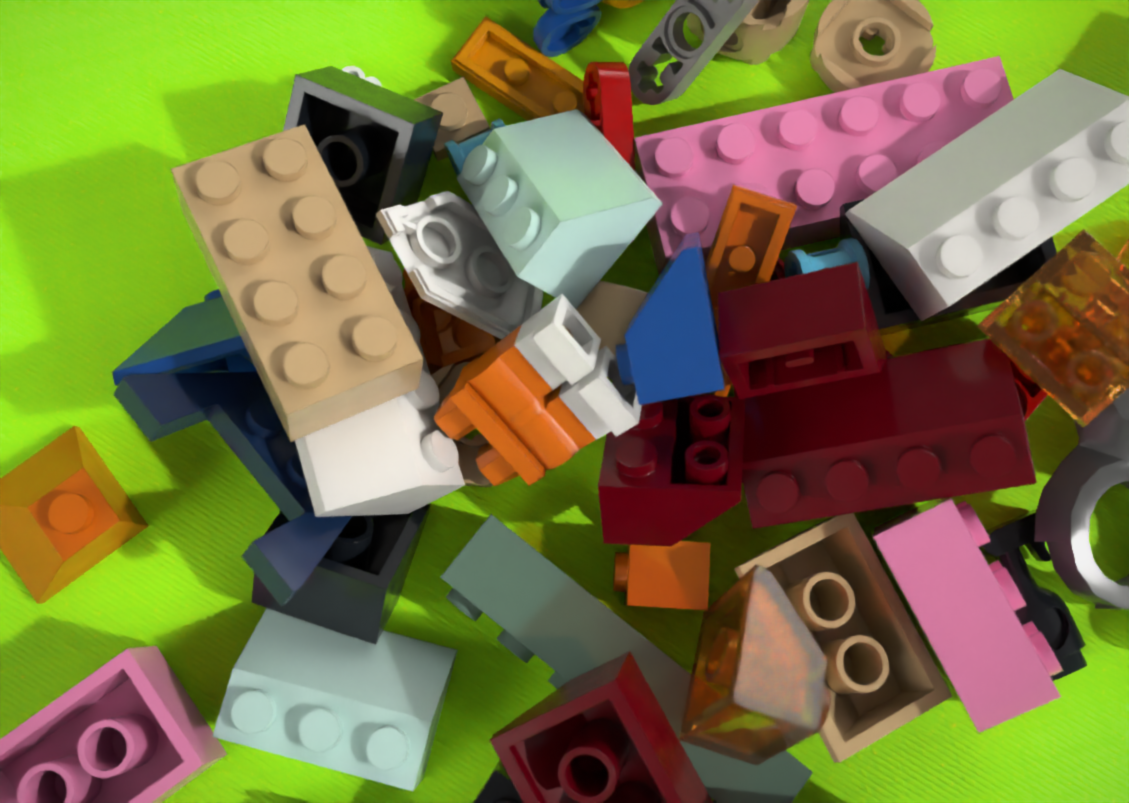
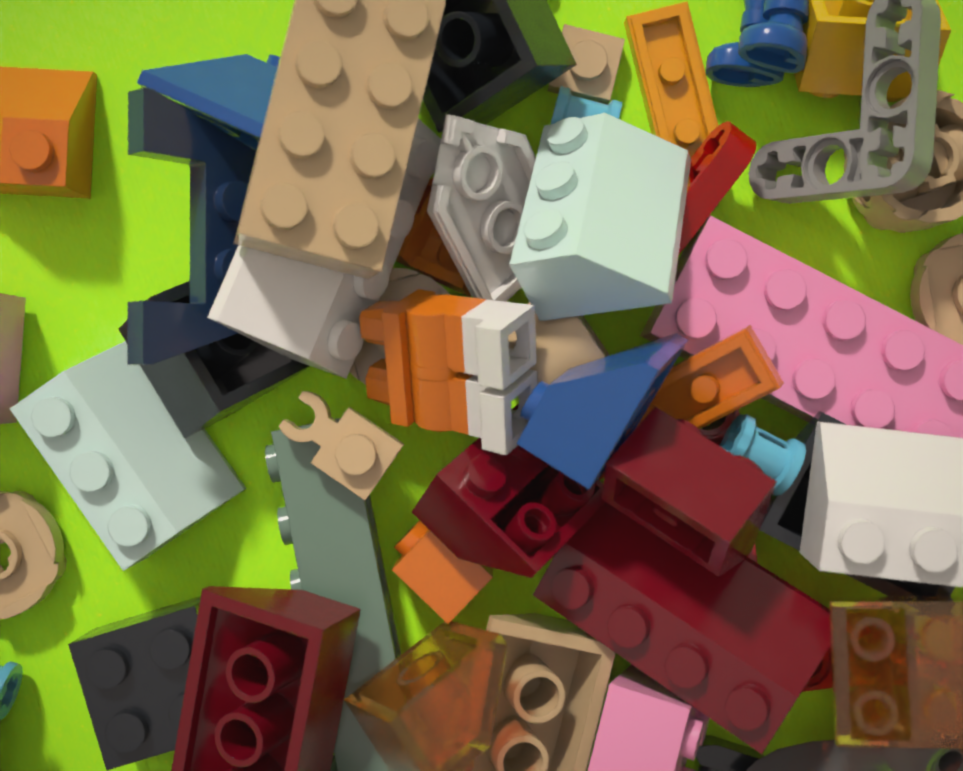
camera: 40 degrees right, 10 degrees up
(515, 534) = (351, 450): none -> tan plate

